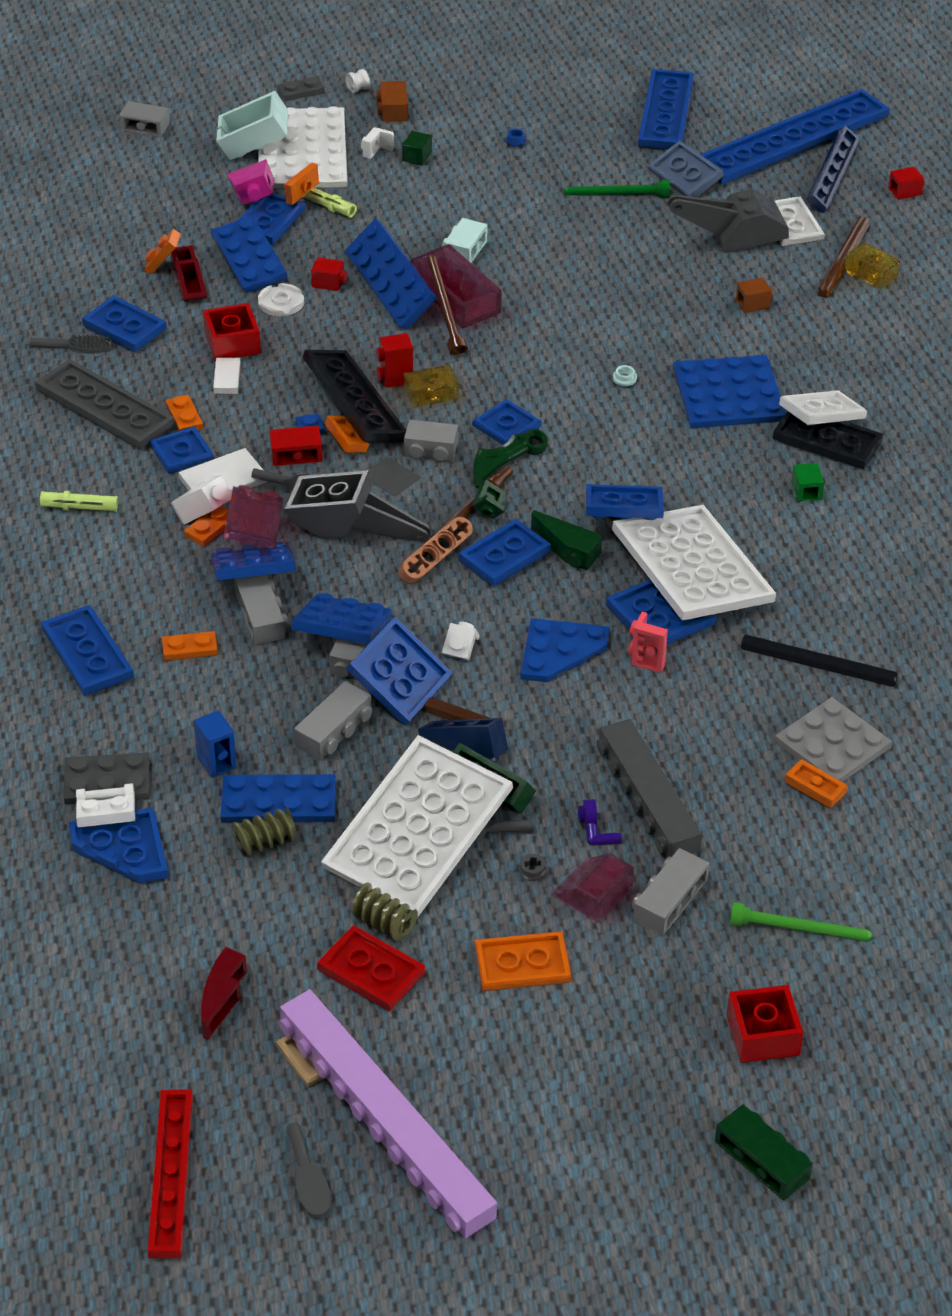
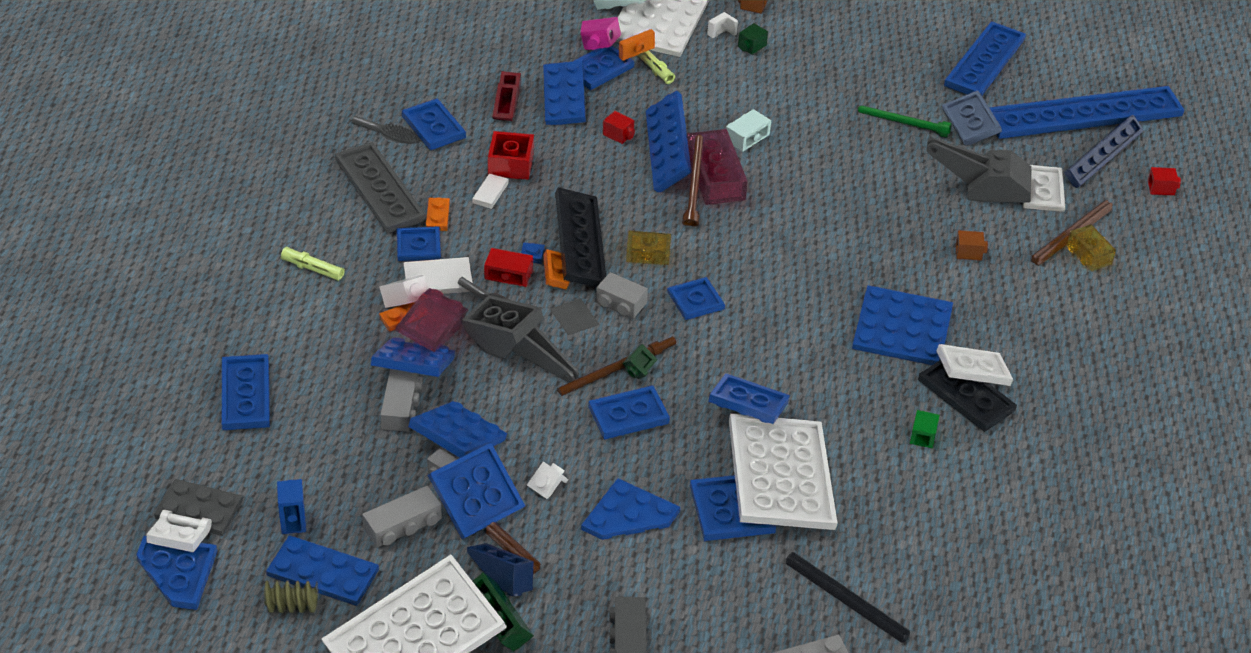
camera: 20 degrees right, 0 degrees up
(164, 248) = (496, 68): orange plate -> none
(189, 645) = (328, 413): orange plate -> none
(281, 300) = (570, 138): white tile -> none
(395, 359) = (627, 215): red brick -> none
(433, 547) = (571, 390): nougat beam -> none
(490, 460) = (663, 326): dark green piece -> none
(515, 137) = (842, 51): blue plate -> none
(570, 542) = (688, 421): dark green slope -> none
(625, 376) = (819, 285): light aqua plate -> none
(648, 644) = (697, 534): coral bracket -> none

